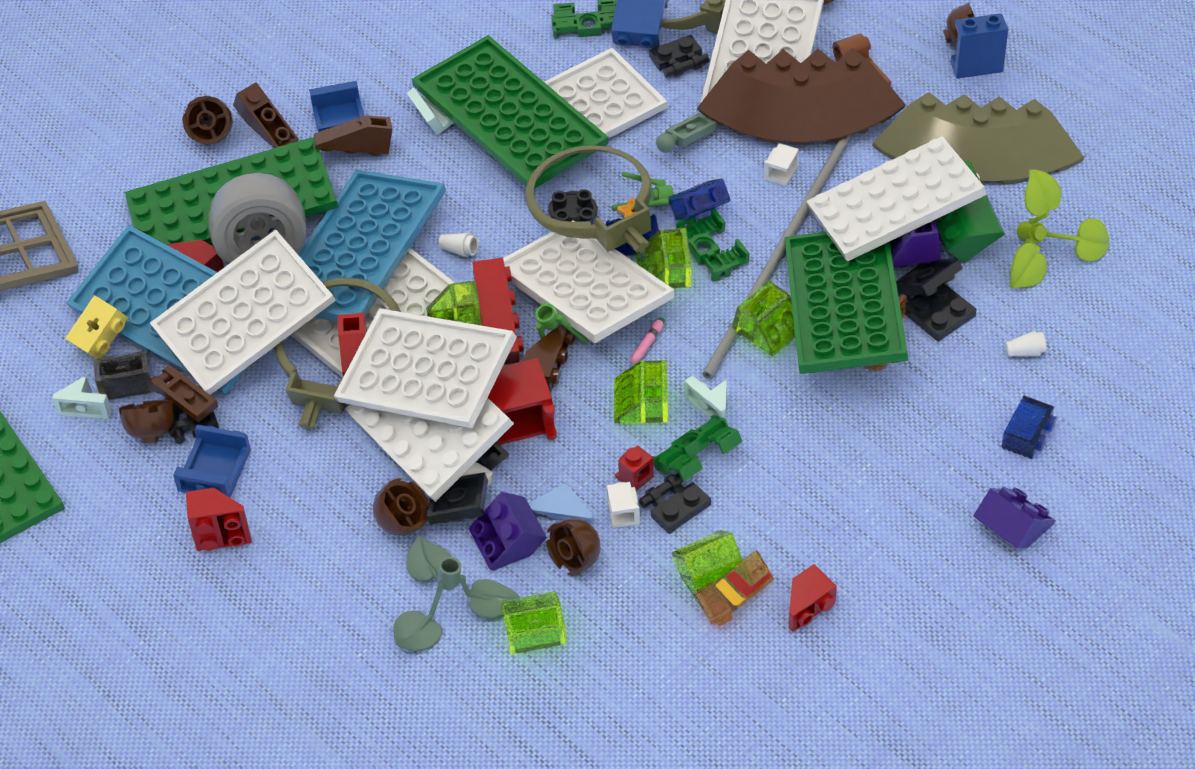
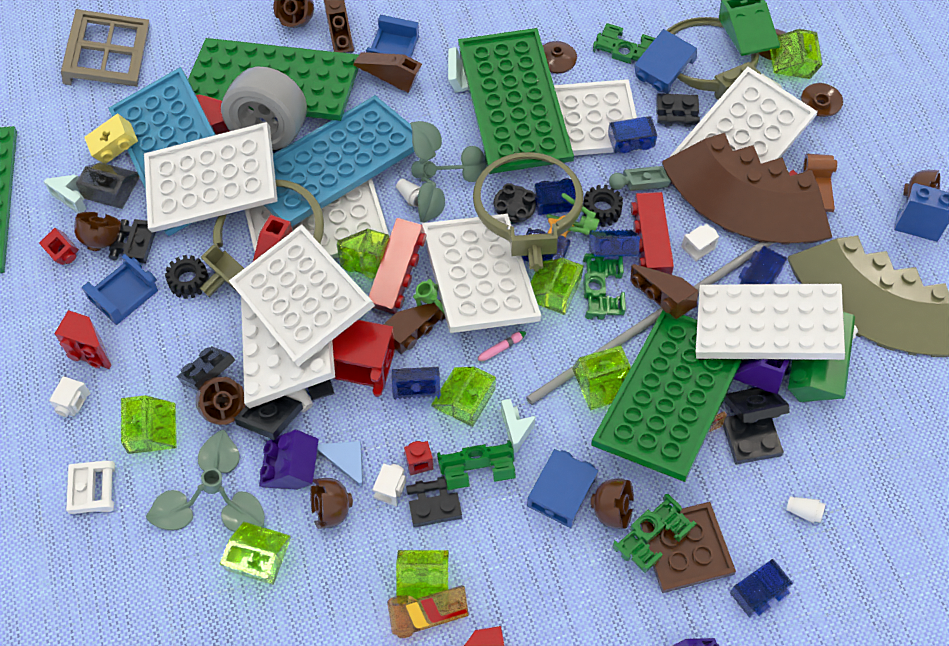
camera: 25 degrees right, 10 degrees up
(109, 447) = (59, 247): none -> red brick
(183, 393) = (132, 223): reddish brown plate -> none
(233, 580) = (69, 397): none -> white window
(279, 432) = (184, 266): none -> black tyre
(308, 652) = (82, 487): none -> white plate
(337, 565) = (147, 424): none -> clear neon green slope
(361, 488) = (207, 366): none -> black plate
(460, 215) = (425, 141): none -> sand green plant
(527, 54) = (560, 56): none -> reddish brown dish
(588, 405) = (416, 382): none -> clear blue brick
(610, 186) = (549, 196): none -> clear blue brick
(653, 94) = (632, 134): none -> clear blue brick
(666, 163) = (604, 195): none -> black tyre
(747, 193) = (653, 232): none -> brick
(776, 218) = (668, 291): none -> reddish brown slope
(792, 431) = (562, 487): none -> blue panel
(847, 419) = (612, 503): none -> reddish brown cylinder
(857, 158) = (764, 267): none -> clear blue brick
(900, 411) = (662, 516): none -> green piece
(938, 426) = (695, 558): none -> reddish brown plate
(1042, 195) = (891, 383): lime plant -> none

